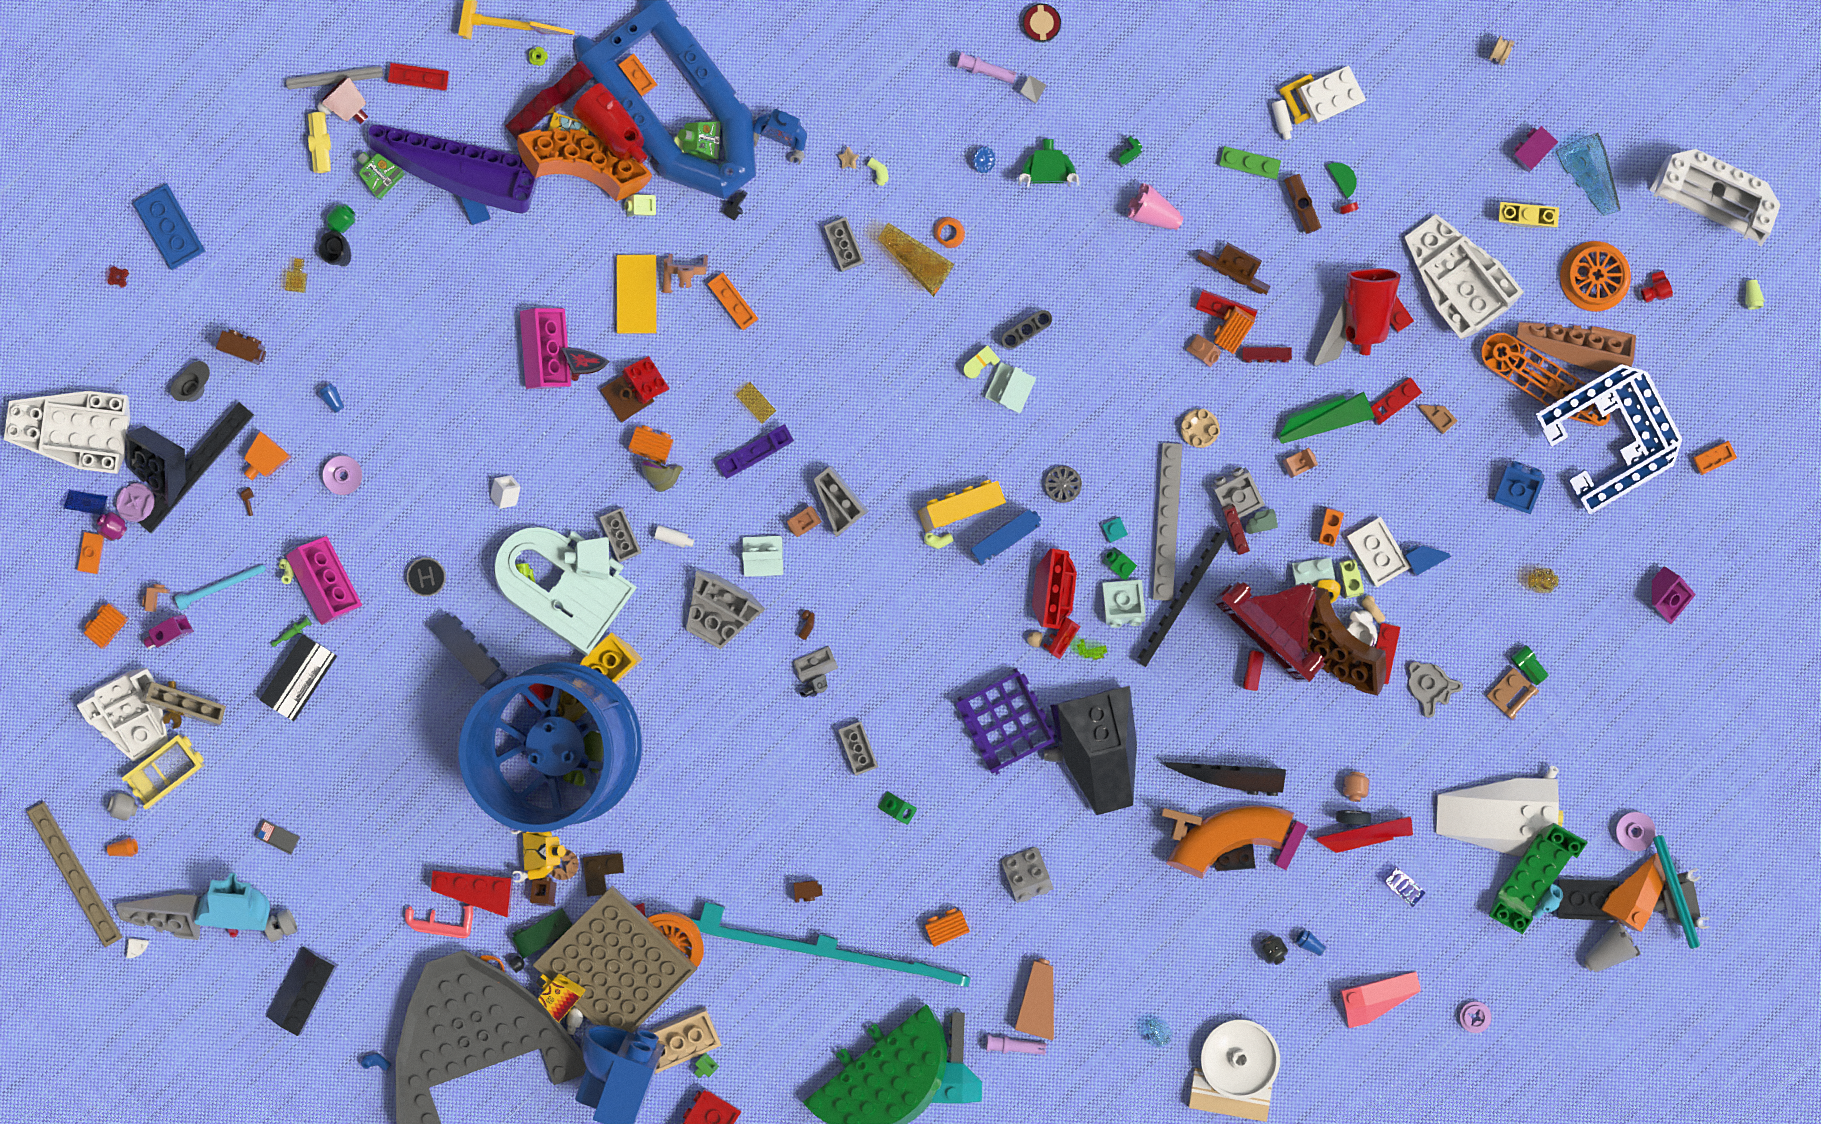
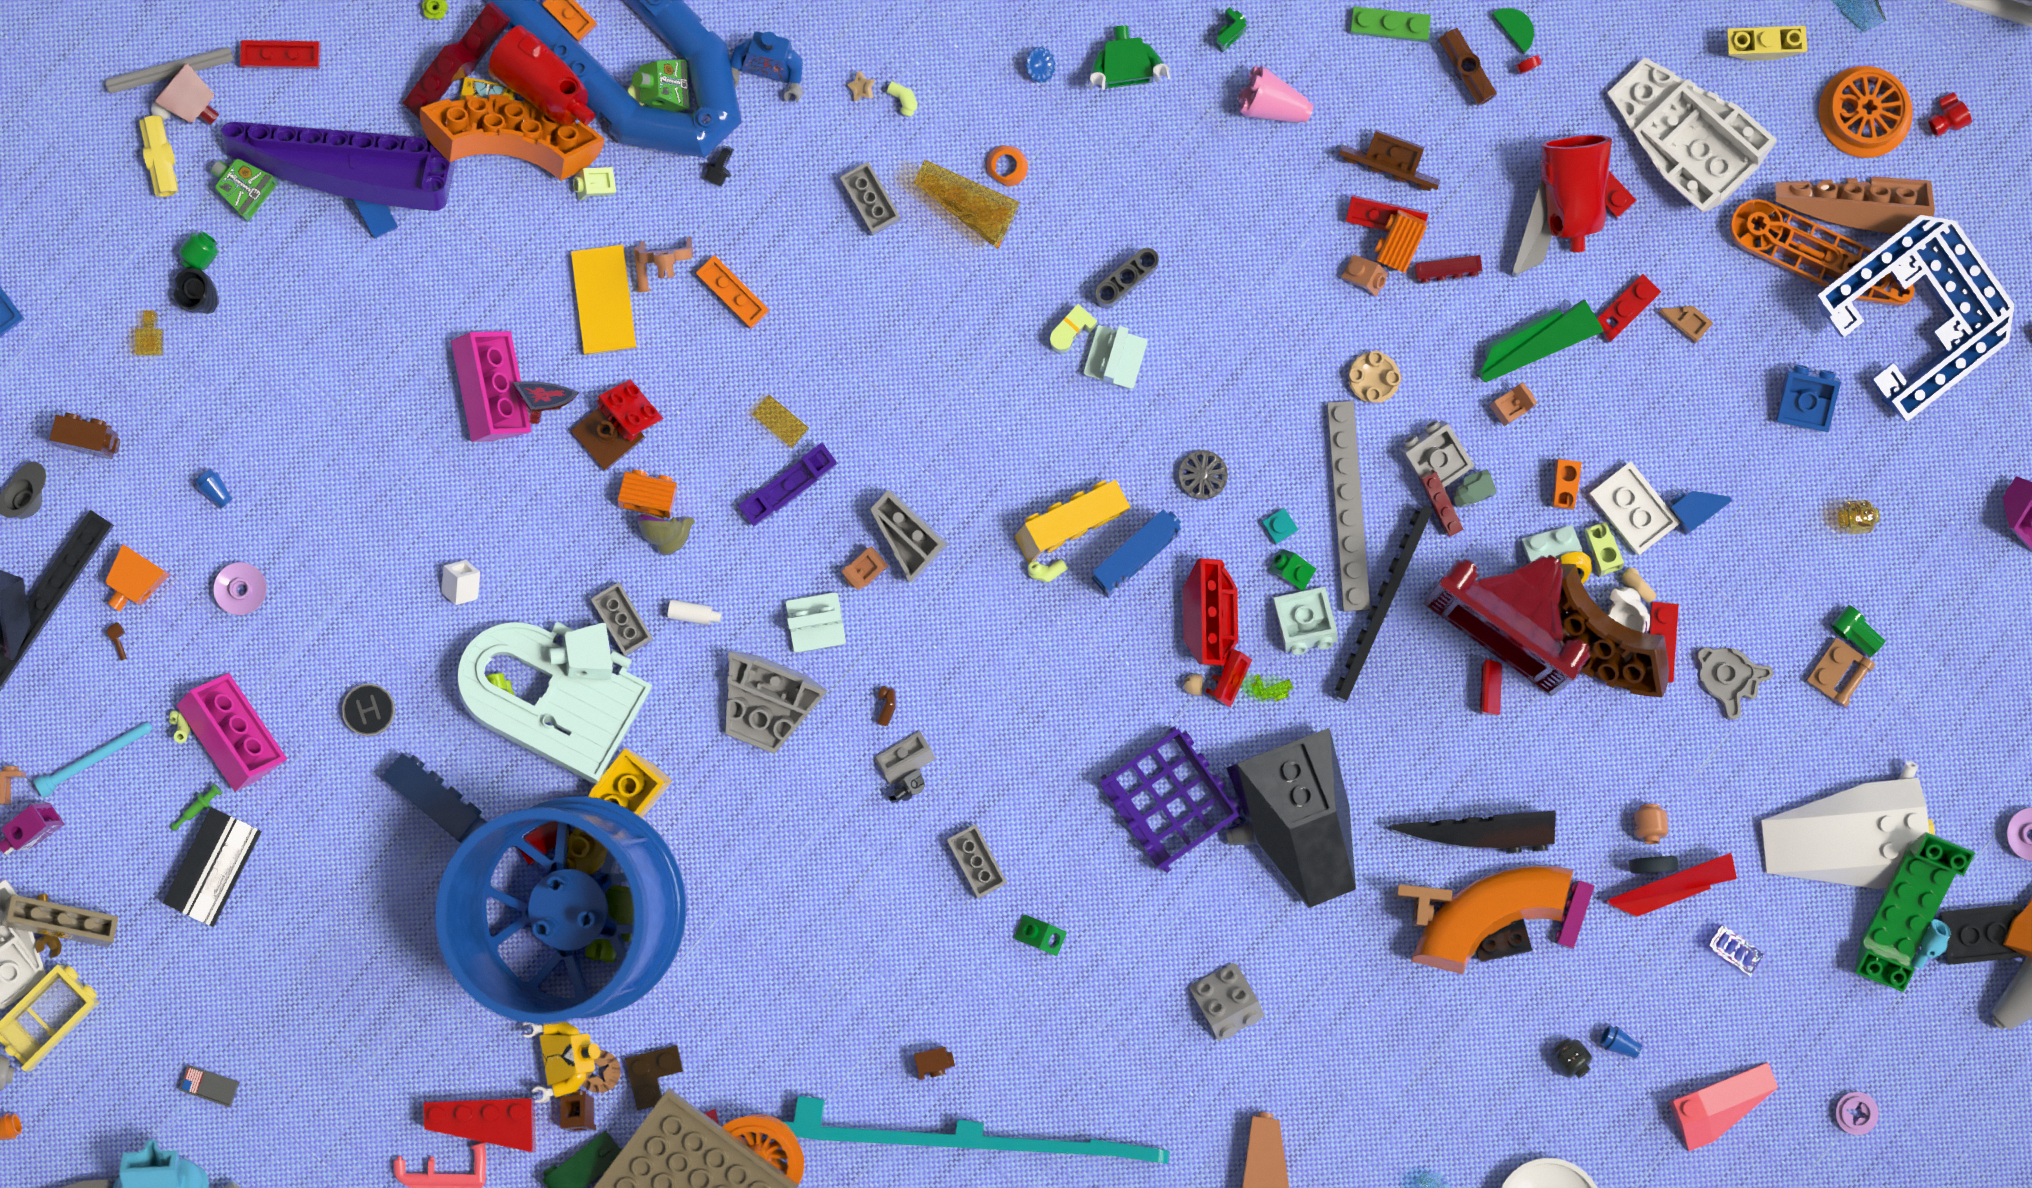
camera: 10 degrees left, 5 degrees down
(947, 927) = (1128, 1087): orange brick -> none

